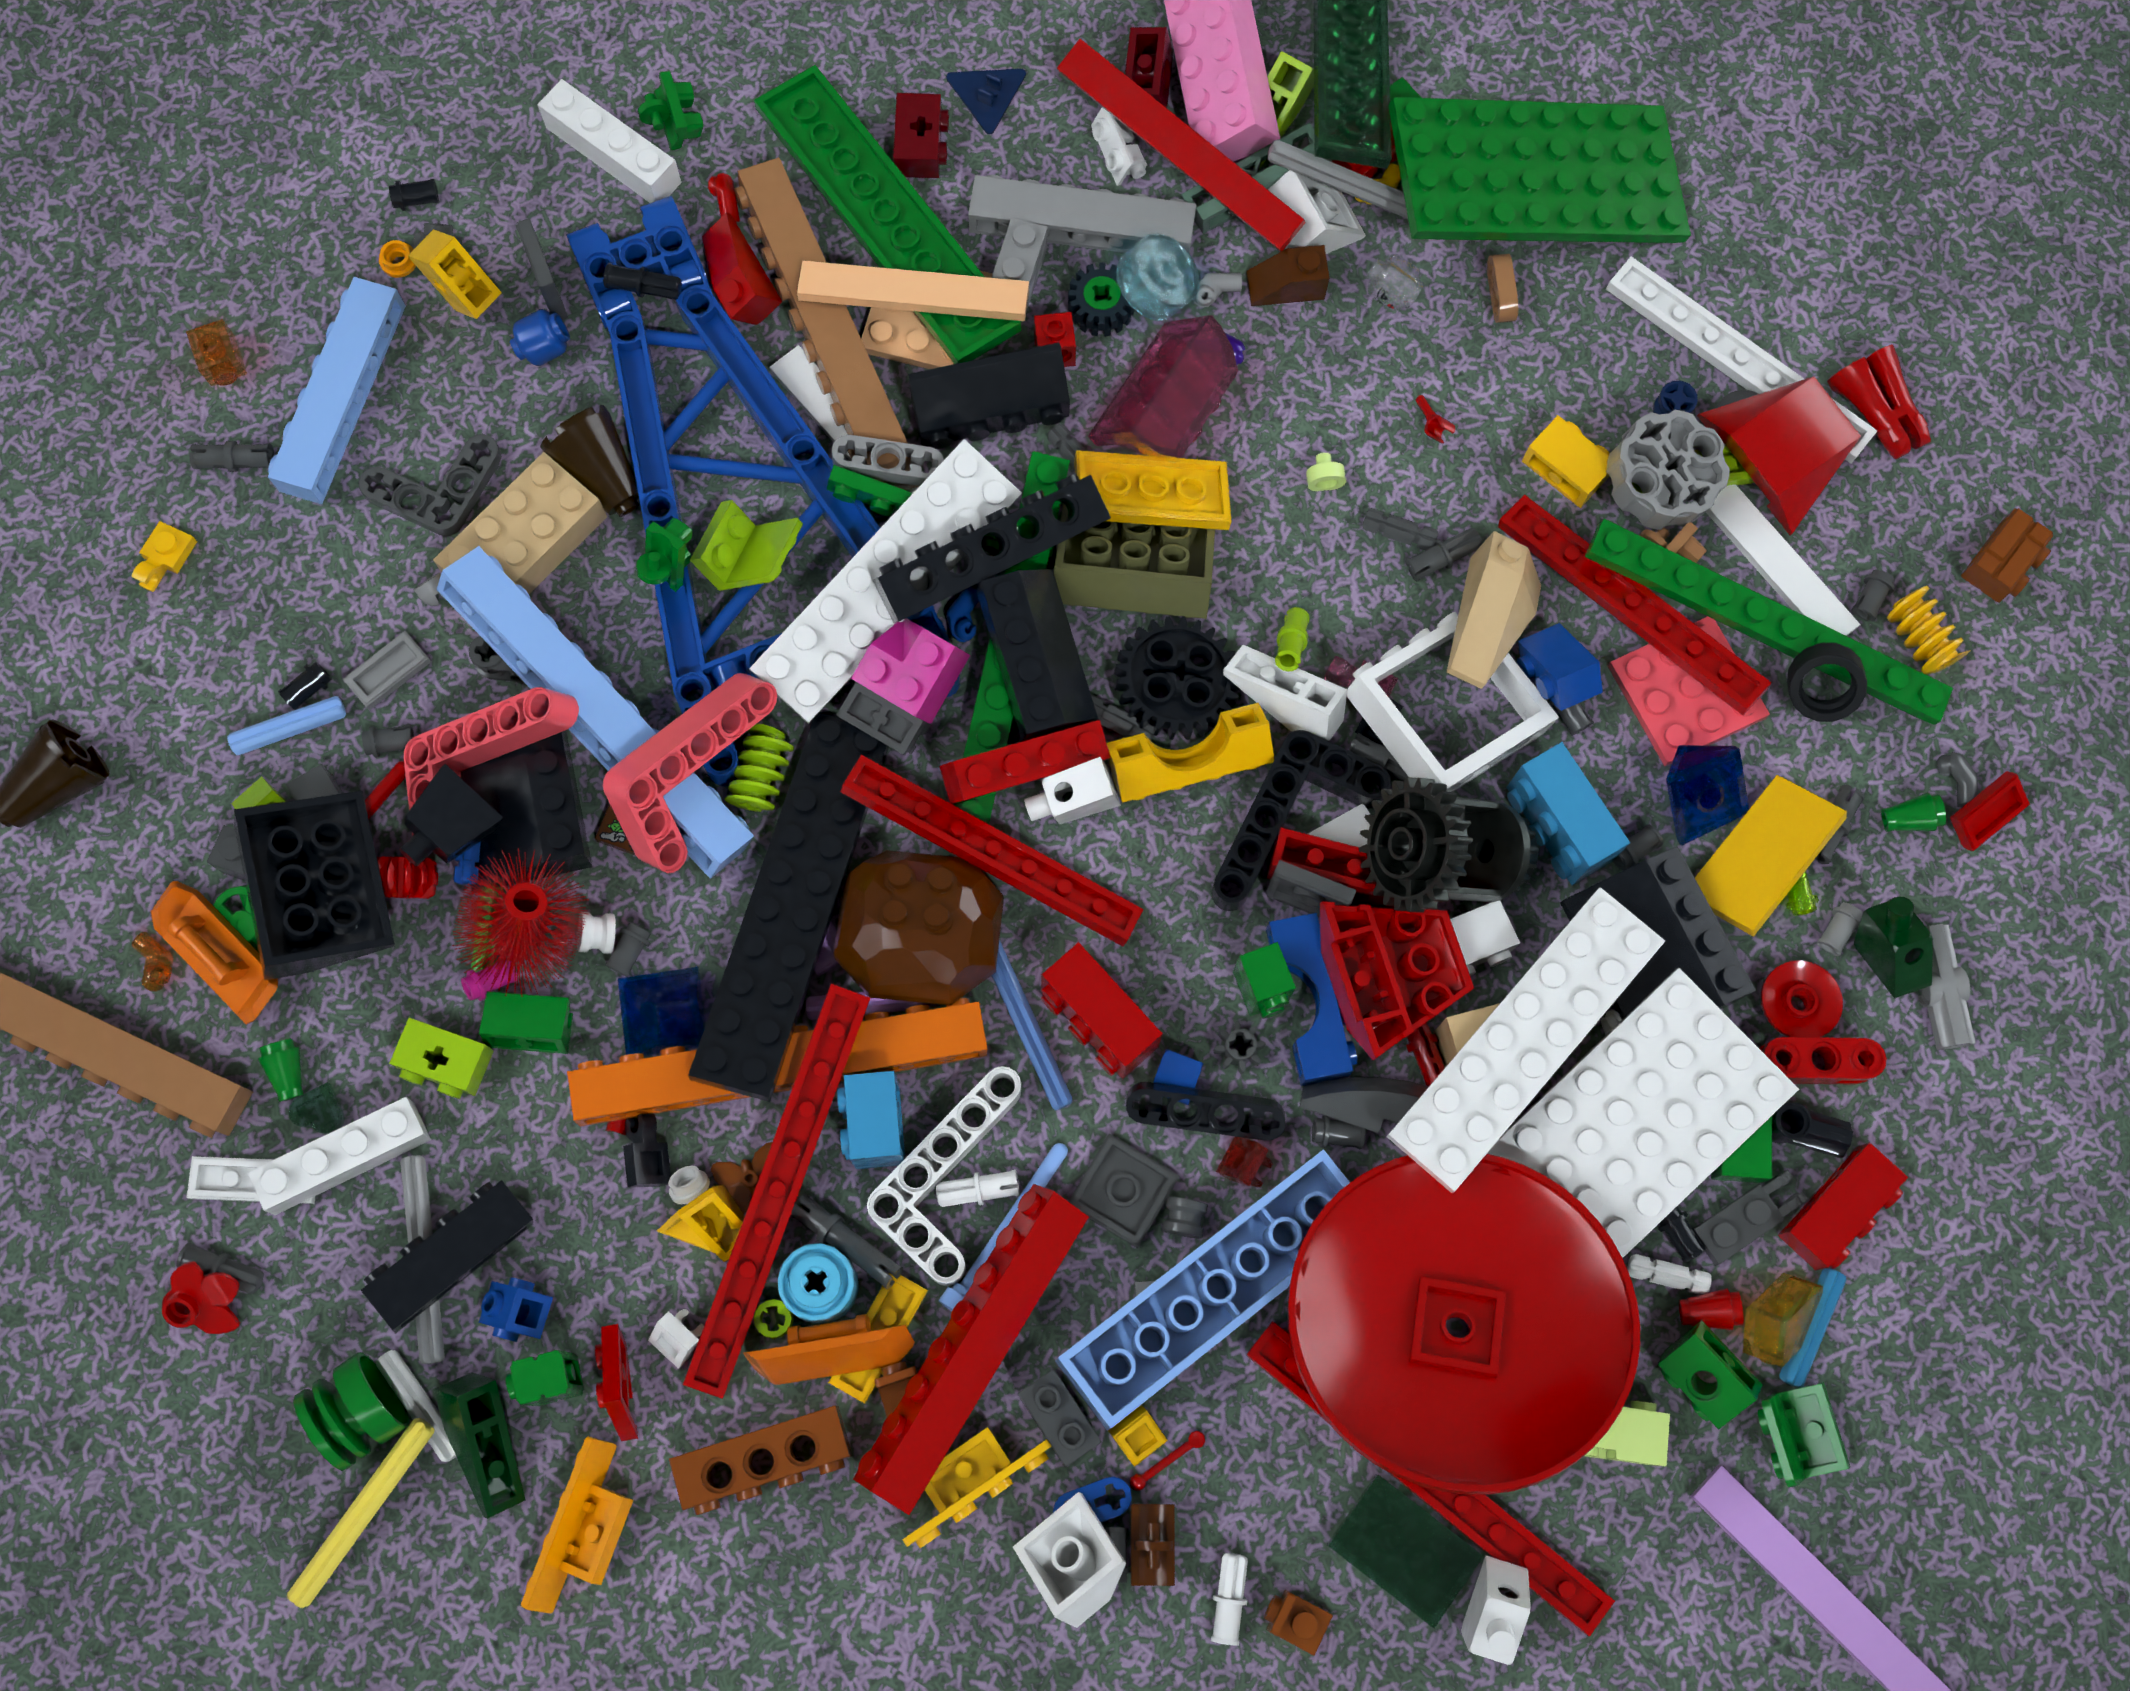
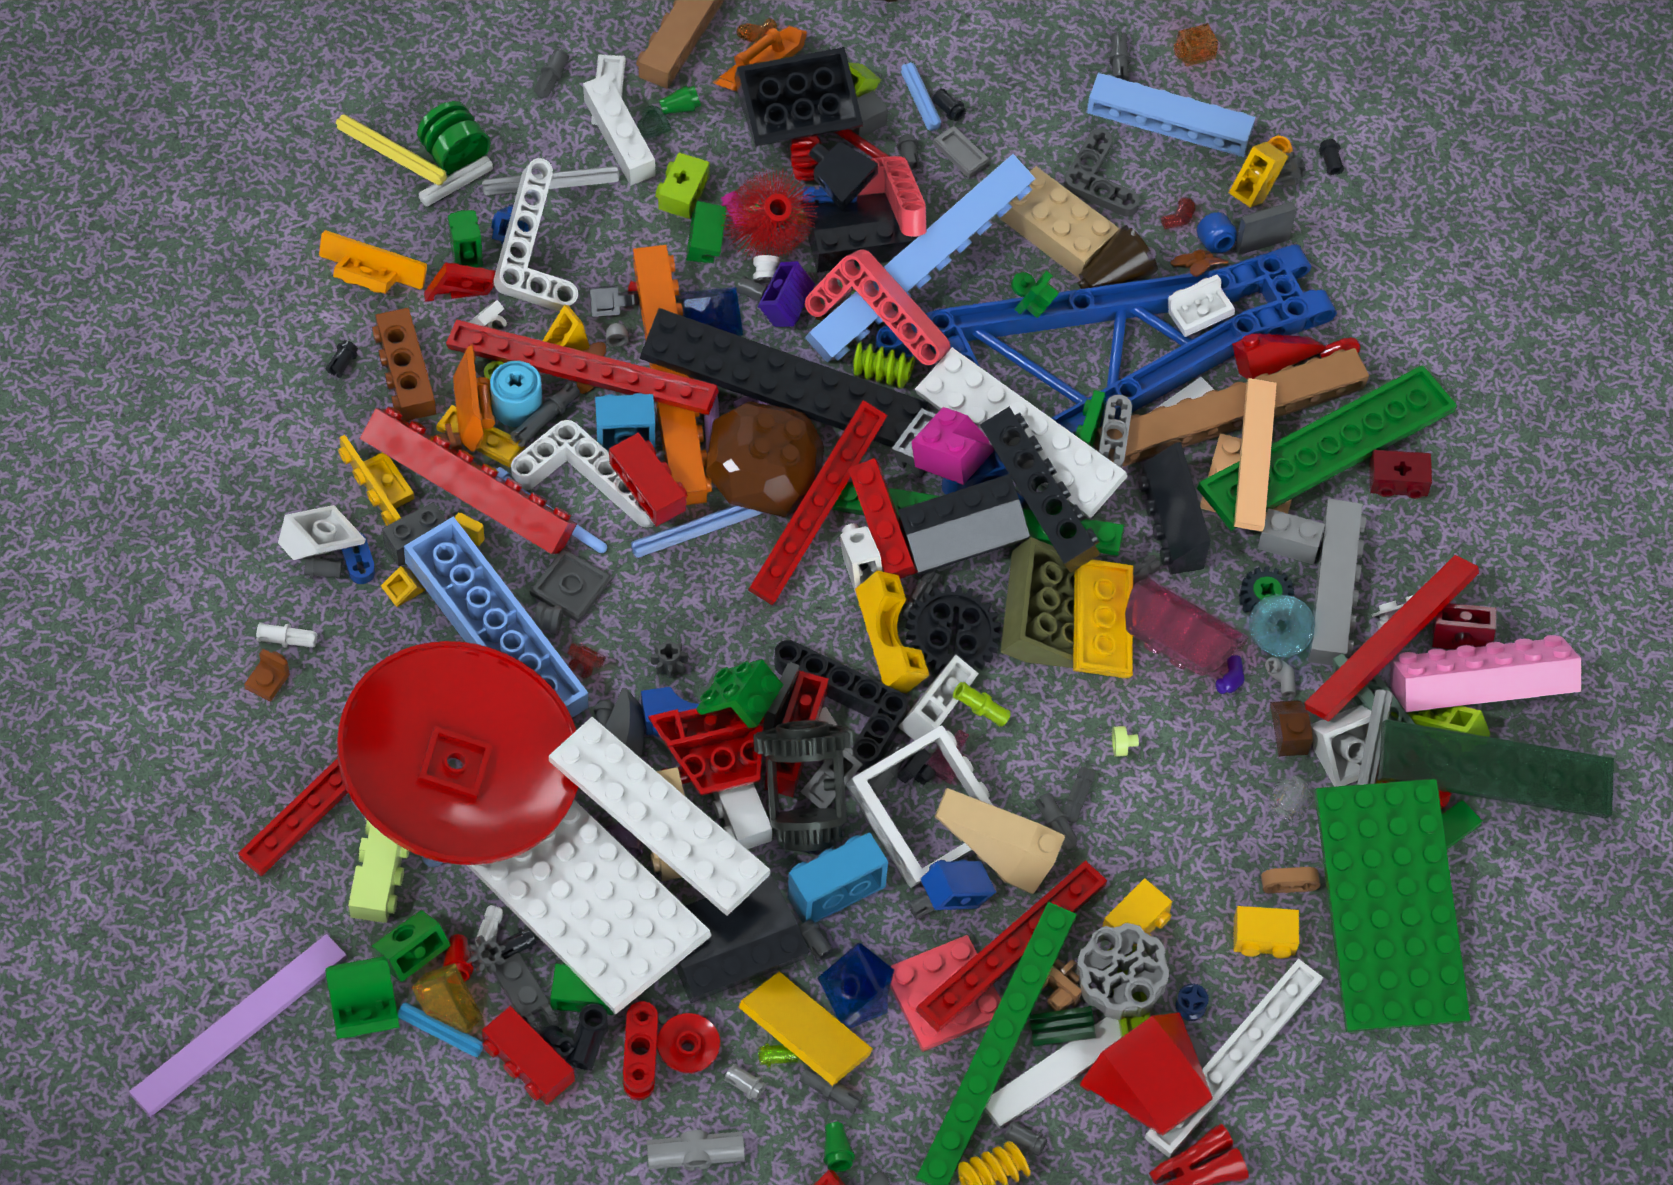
camera: 90 degrees right, 15 degrees down
(164, 550) = (1046, 25): yellow plate -> none
(201, 1300) = (531, 62): red plate -> none
(447, 1256) = (563, 202): black brick -> none
(481, 1441) = (427, 210): dark green slope -> none
(496, 377) = (1182, 215): none -> clear red arm
(559, 1277) = (524, 242): none -> white beam
(581, 362) = (1197, 261): none -> dark orange piece
(609, 142) = (1378, 273): white brick -> none
(642, 281) = (1256, 284): black axle -> none
(643, 902) = (786, 294): none -> dark purple brick
(665, 111) = (1400, 317): green hips -> none
(677, 351) = (1199, 306): none -> white bracket
(687, 1184) = (591, 323): white plate -> none
(703, 1145) = (616, 335): none -> light grey hinge
(742, 553) = (1050, 349): lime bracket -> none
(748, 1558) = (345, 353): none -> black pin
(976, 1079) = (648, 479): none -> red brick
(978, 1188) = (577, 495): white axle -> none
(987, 93) = (1447, 527): dark blue piece -> none
(1044, 1340) = (473, 528): none -> yellow tile
(1055, 329) = (1227, 558): red brick -> none
(1099, 1012) = (696, 562): red brick -> none
(1152, 1544) = (327, 585): reddish brown hips -> none
(1178, 1071) = (651, 621): blue slope -> none
(1195, 1440) = (395, 624): red hinge -> none
(1204, 1118) = (617, 636): black beam -> none
(1264, 980) = (709, 659): green brick -> none
(1336, 935) = (744, 688): none -> green bracket
(1405, 1551) = (303, 745): clear green plate -> none
(1435, 423) = (1165, 825): red hand -> none
(1496, 1620) = (260, 786): white torso -> none
(1575, 316) = (1266, 931): none -> yellow brick
(1719, 519) = (1062, 1021): none -> dark green tile
(1719, 1269) = (486, 962): none -> dark grey gear
(1820, 1169) = (557, 1040): none -> black pin
(1835, 708) = (956, 1089): black tyre -> none
(1896, 946) = (733, 1100): dark green torso -> none

